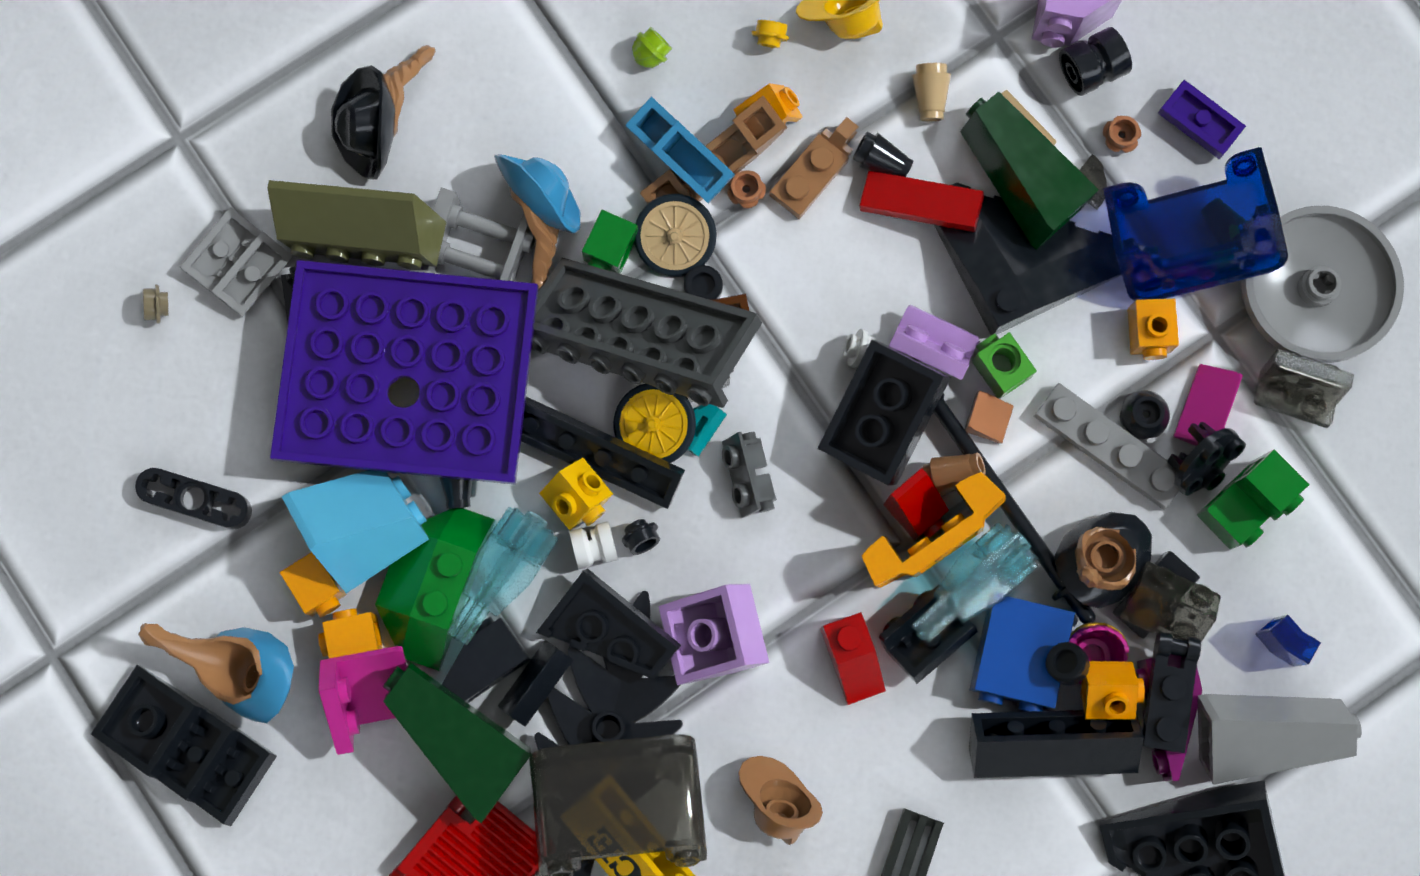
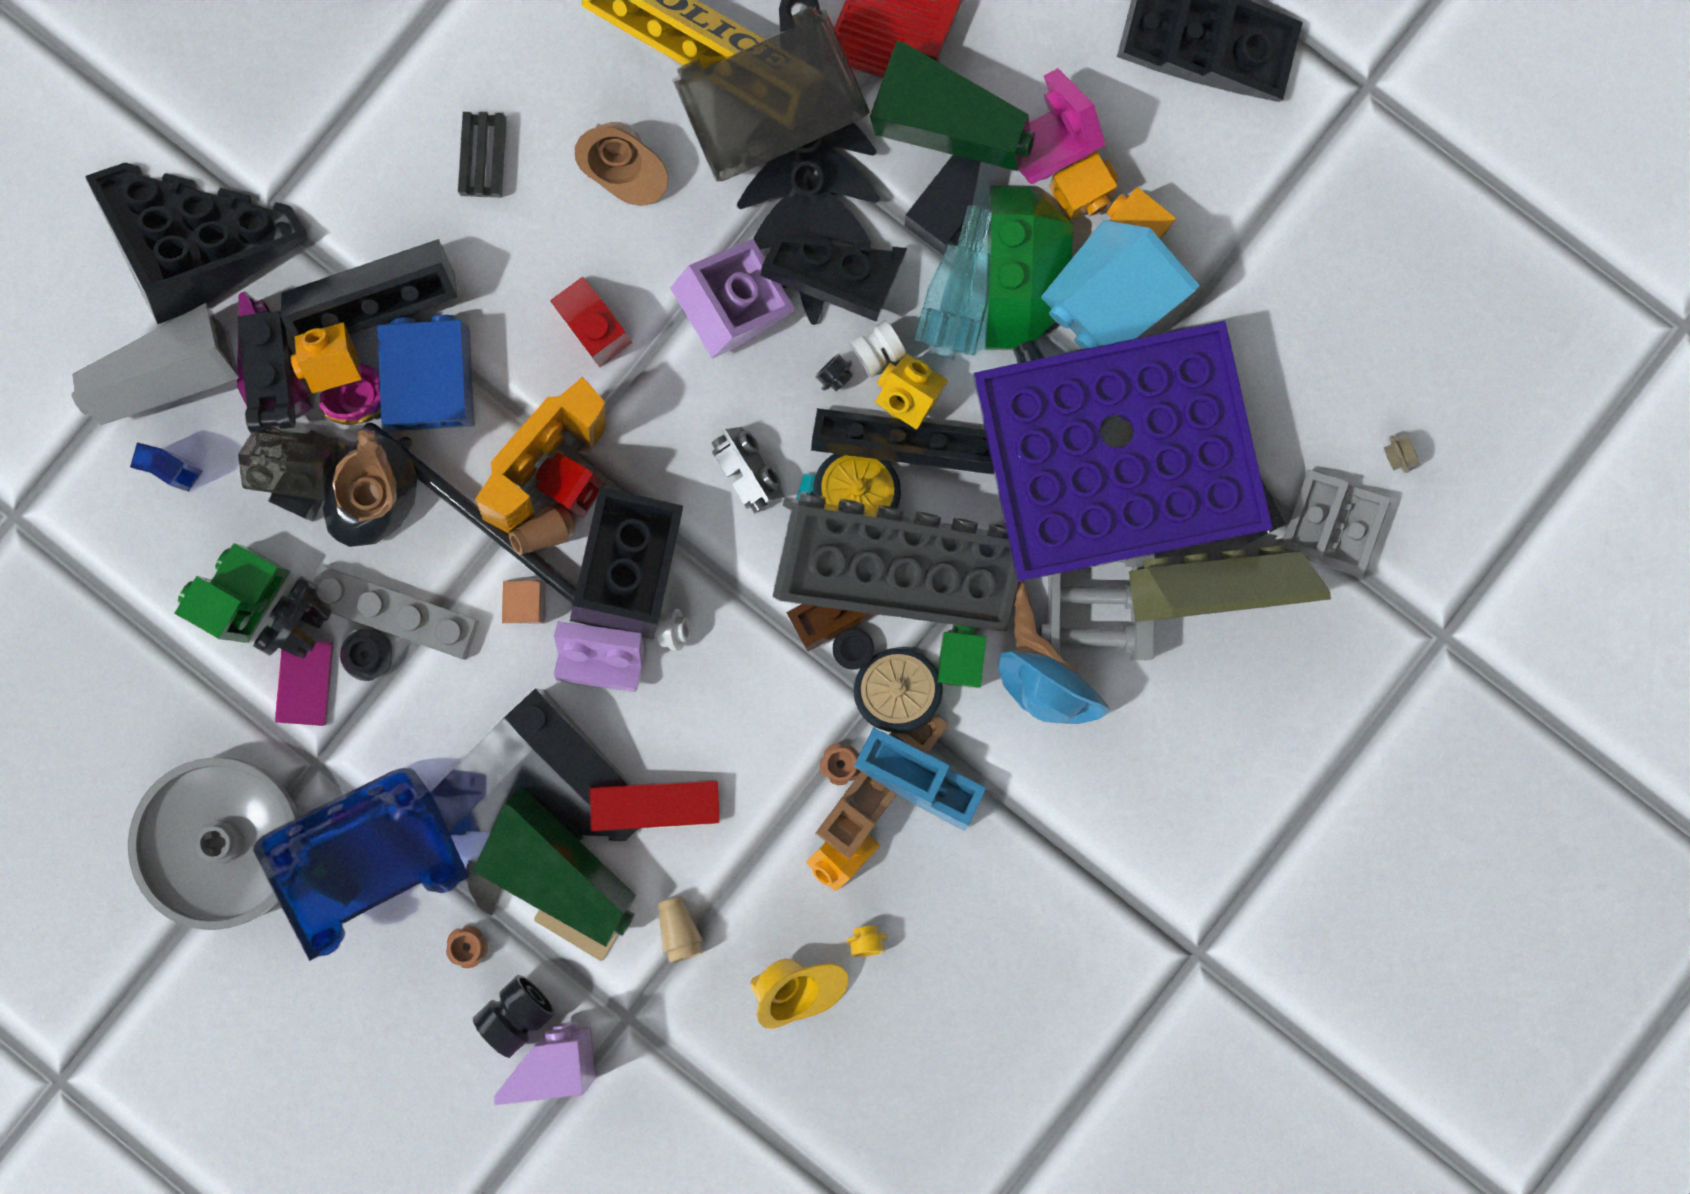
camera: 175 degrees right, 5 degrees up
(170, 479) = (1319, 284): black beam -> none
(227, 667) = (1186, 124): hat -> none
(369, 110) = (1257, 722): black hat -> none
(535, 683) = (892, 199): black slope -> none
(650, 48) = (987, 885): lime plate -> none
(815, 169) = (775, 808): medium nougat hinge -> none
(881, 156) = (710, 841): black cone -> none
(917, 656) = (523, 363): black bracket -> none
(978, 579) = (484, 424): clear light blue piece -> none
(1003, 382) = (504, 655): bright green brick -> none
(1067, 663) = (374, 367): black tile -> none
(1153, 328) = (379, 744): light orange brick -> none
(1201, 119) = (386, 988): dark purple plate -> none
(1301, 387) = (212, 726): clear smoke bracket -> none

